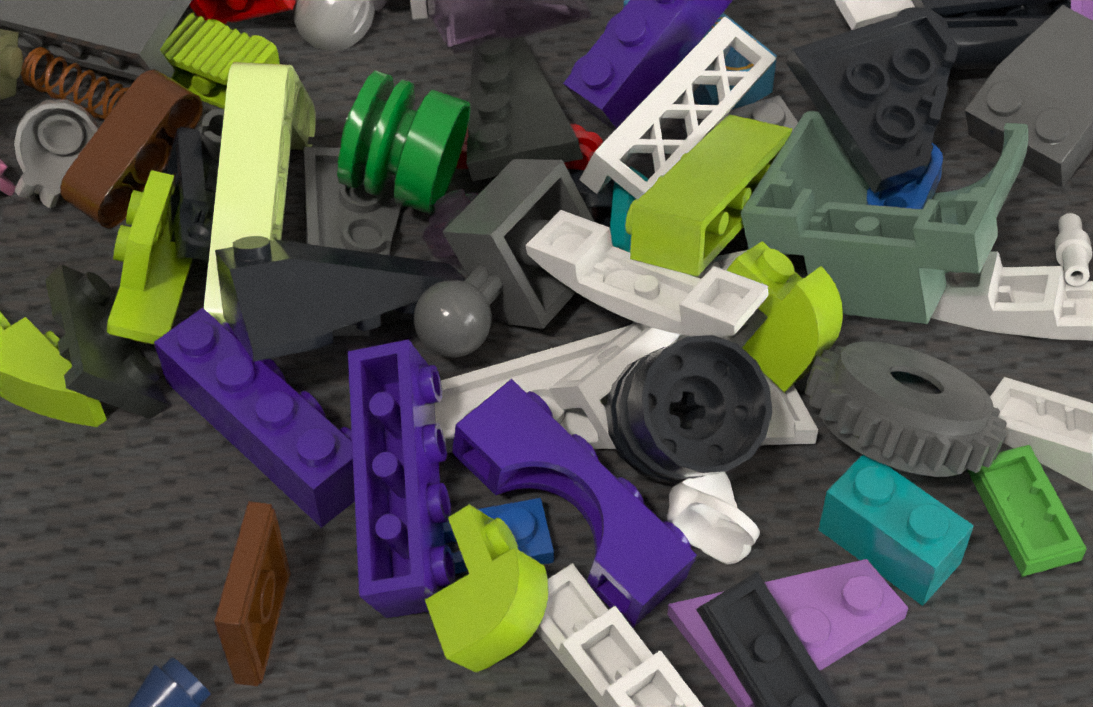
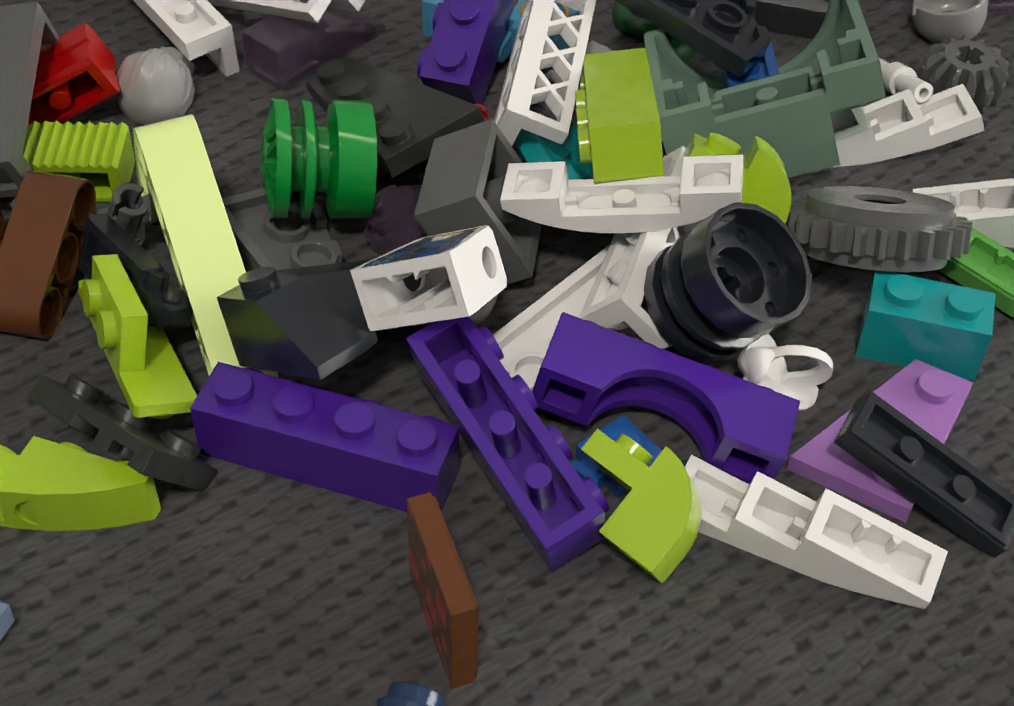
camera: 30 degrees left, 5 degrees down
(398, 304) = (456, 273): none -> white torso

